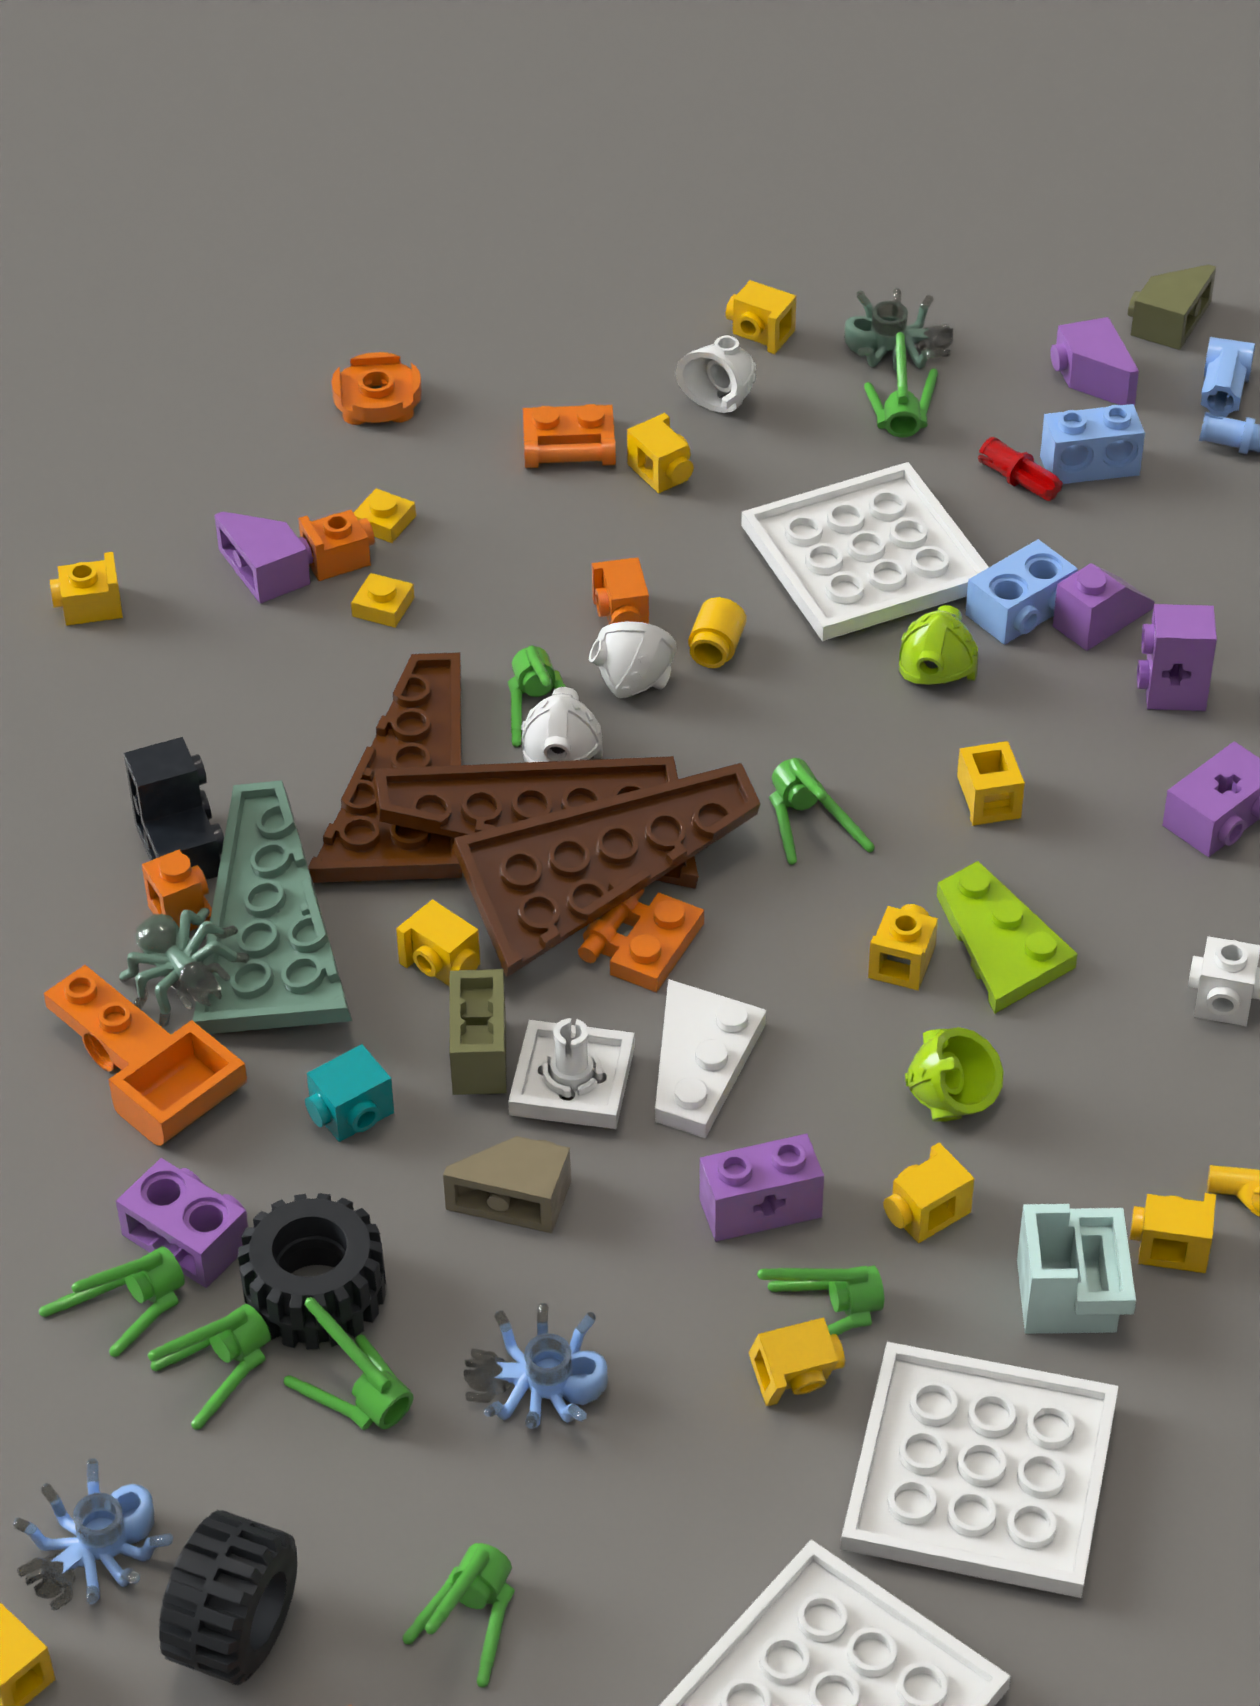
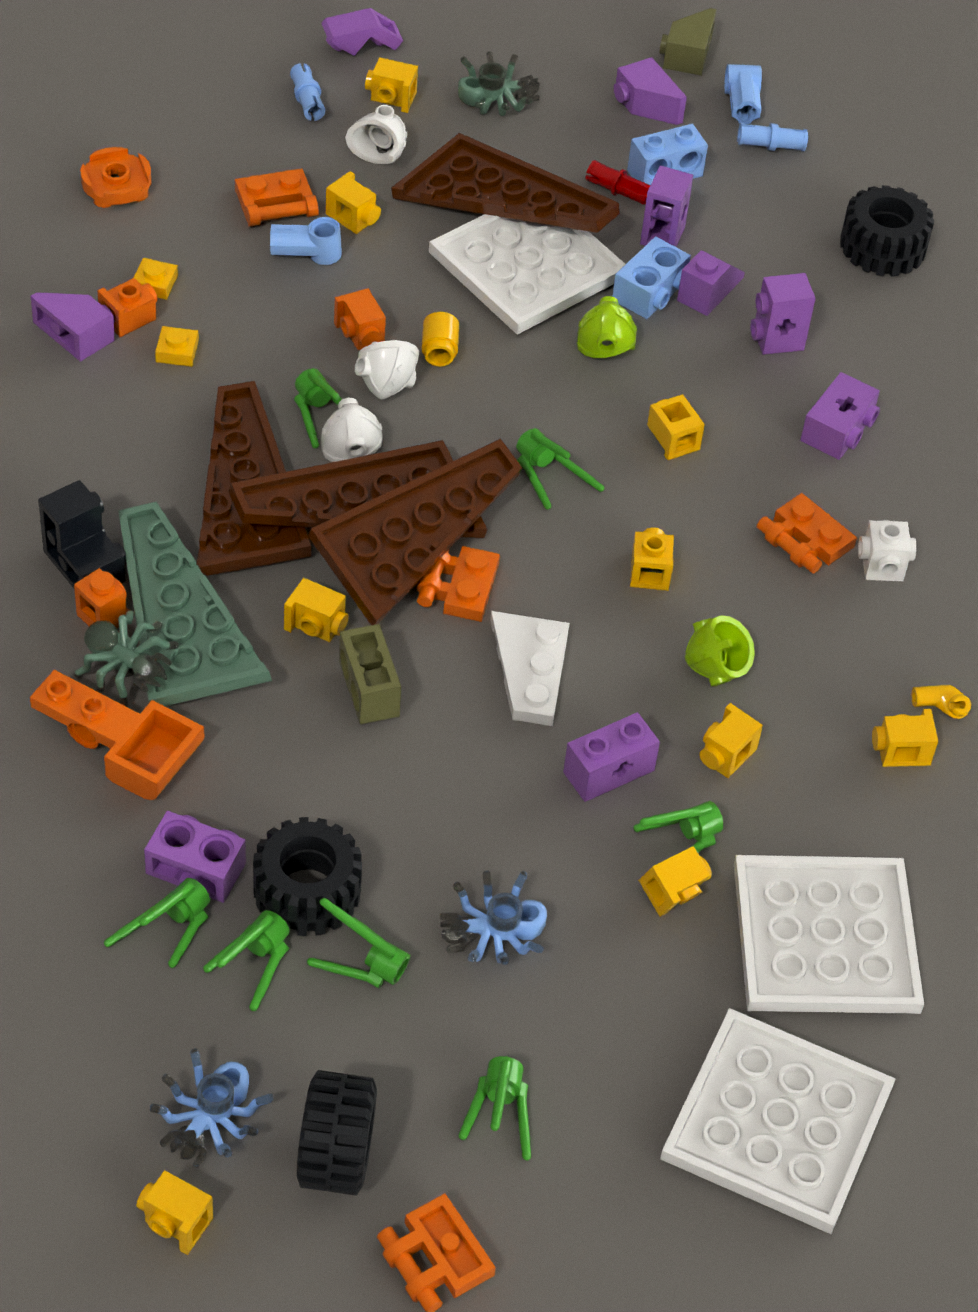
camera: 20 degrees left, 5 degrees up
(349, 1093) = (287, 736): teal brick -> none
(511, 1183) = (429, 784): dark tan slope -> none
(571, 1065) = (444, 686): white plate -> none
(600, 492) = (318, 239): none -> light blue piece
(651, 314) = (307, 92): none -> light blue pin
(731, 244) = (353, 30): none -> medium lavender slope
(857, 452) = (491, 182): none -> reddish brown wing
(902, 411) = (518, 143): bright green plant -> none
(1003, 937) = (719, 542): lime wing -> none
(1065, 503) = (666, 206): none -> medium lavender brick
(1074, 1269) = (848, 780): light aqua plate -> none
(1140, 939) = (814, 529): none -> orange plate

